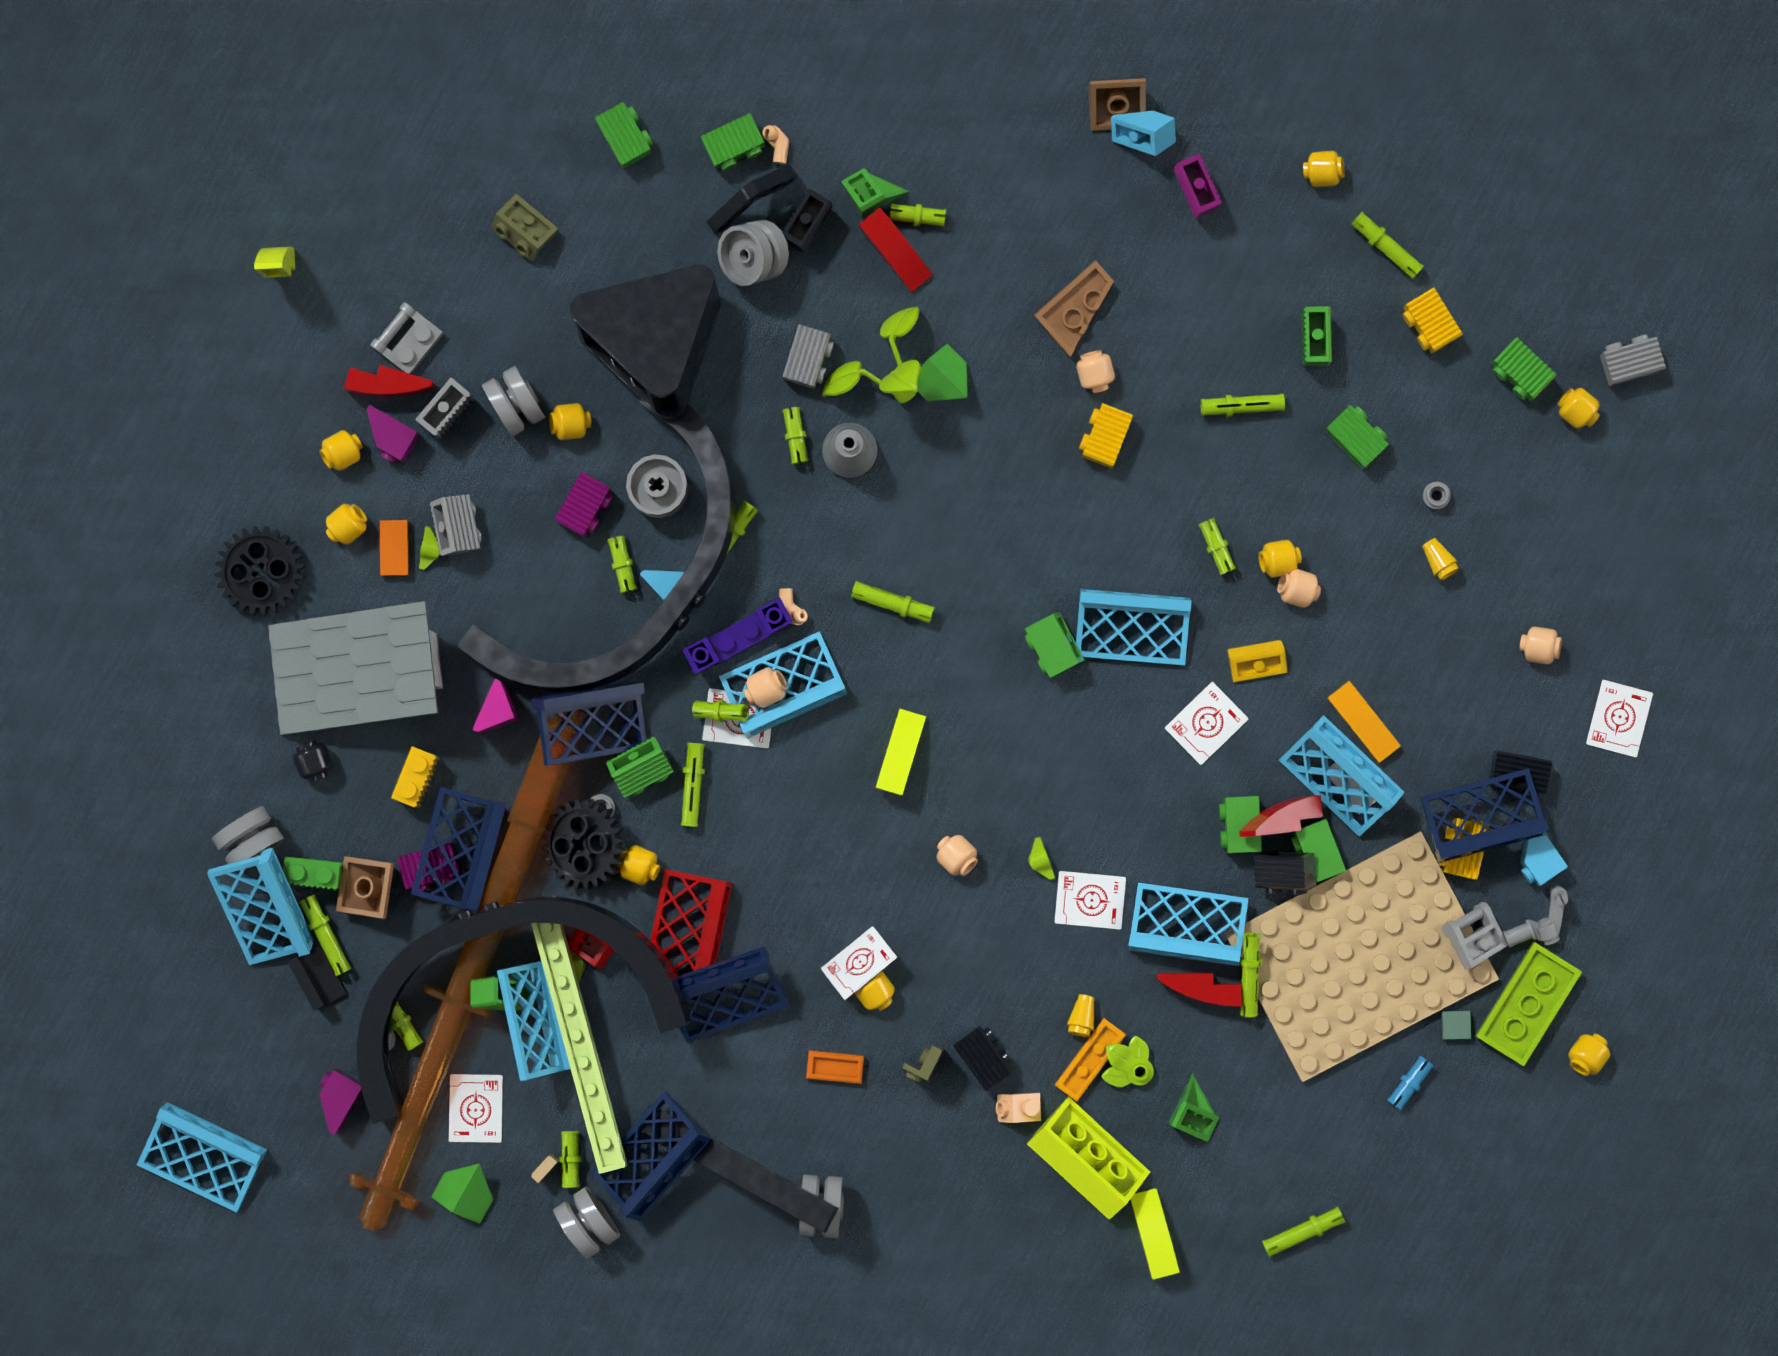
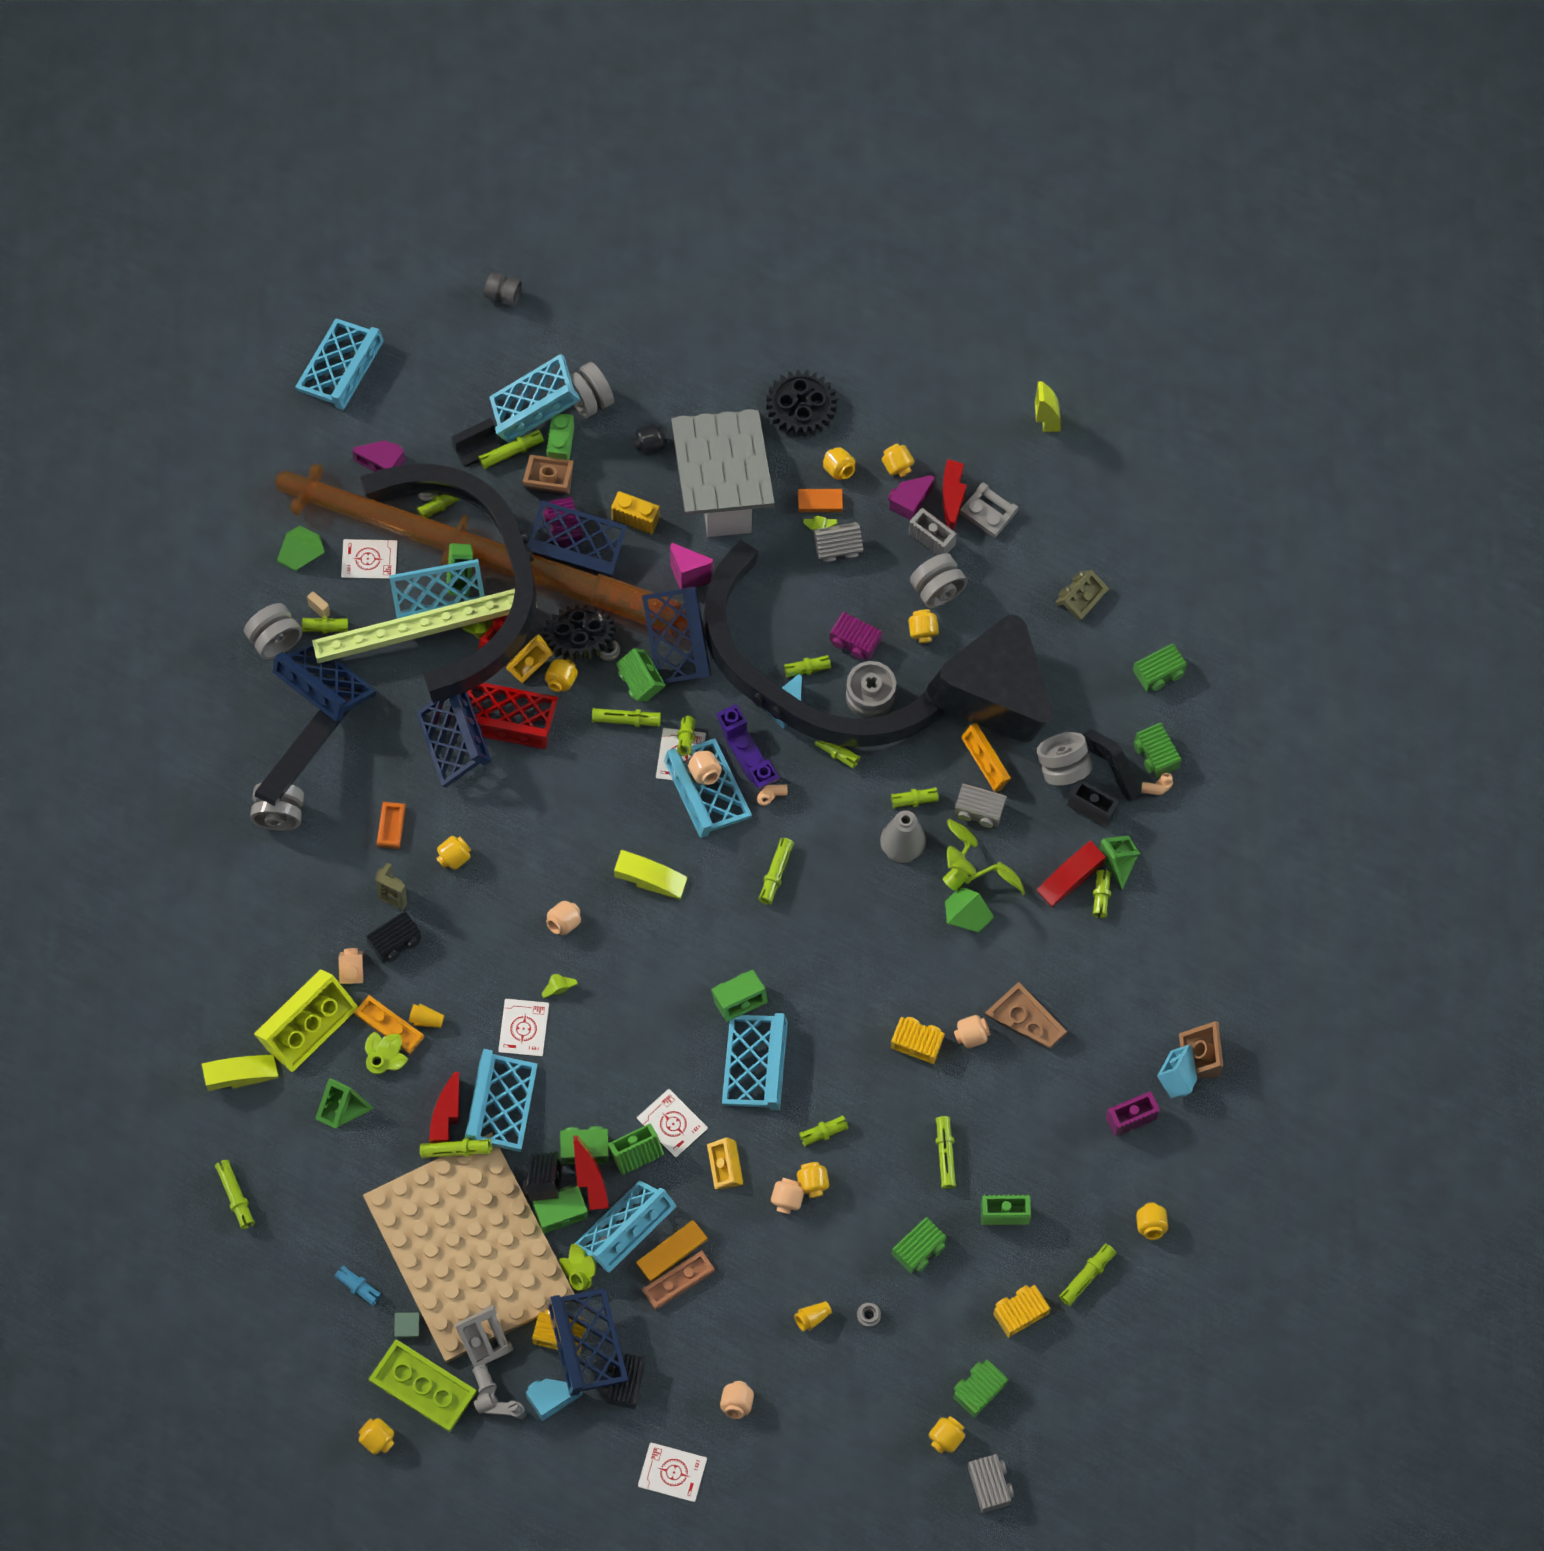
camera: 85 degrees right, 20 degrees down
(97, 951) = (499, 287): none -> flat silver wheel
(617, 899) = (529, 659): none -> yellow slope
(744, 348) = (985, 757): none -> light orange tile
(858, 963) = (476, 840): white sticker -> none
(1247, 764) = (636, 1149): none -> bright green brick
(1394, 825) = (578, 1267): none -> lime plate
(1397, 713) = (678, 1280): none -> nougat tile

